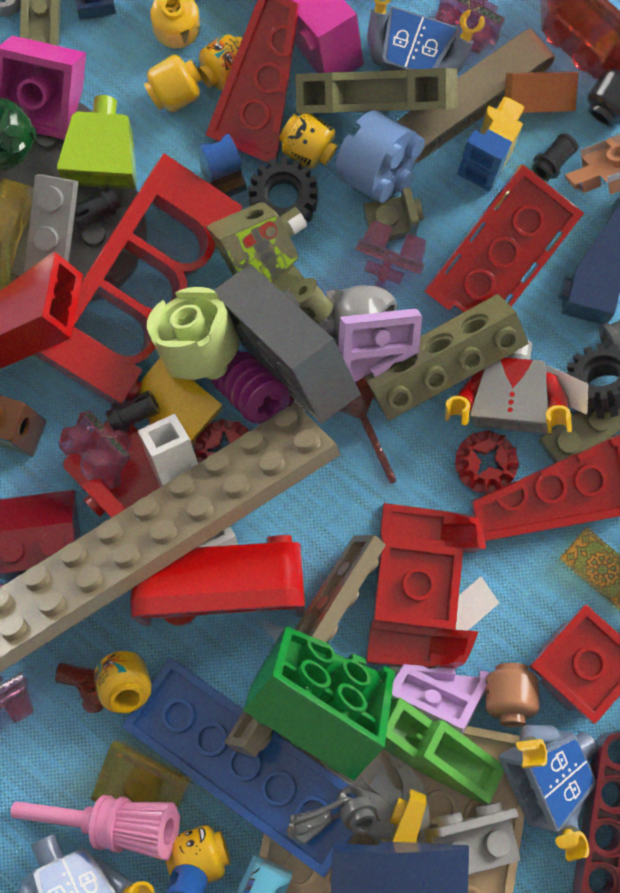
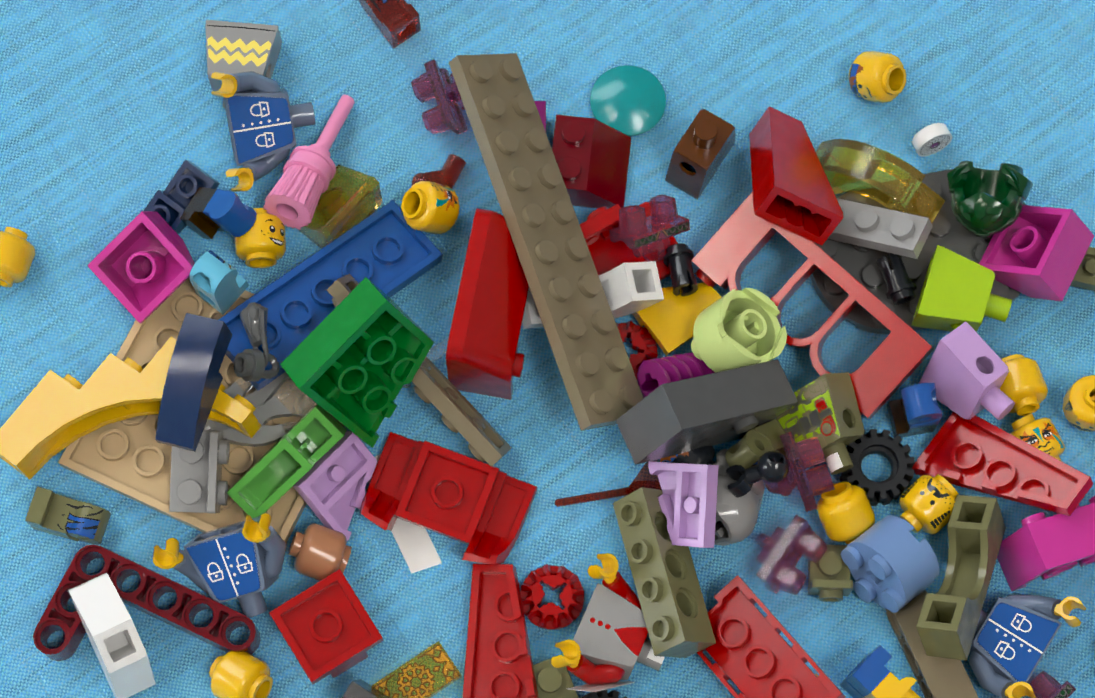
camera: 105 degrees right, 5 degrees down
(180, 121) = (968, 375): none -> lavender torso
(312, 249) = (808, 482): none -> clear pink hips
(329, 273) = (771, 467): none -> black arm
(337, 209) = (845, 512): none -> yellow head

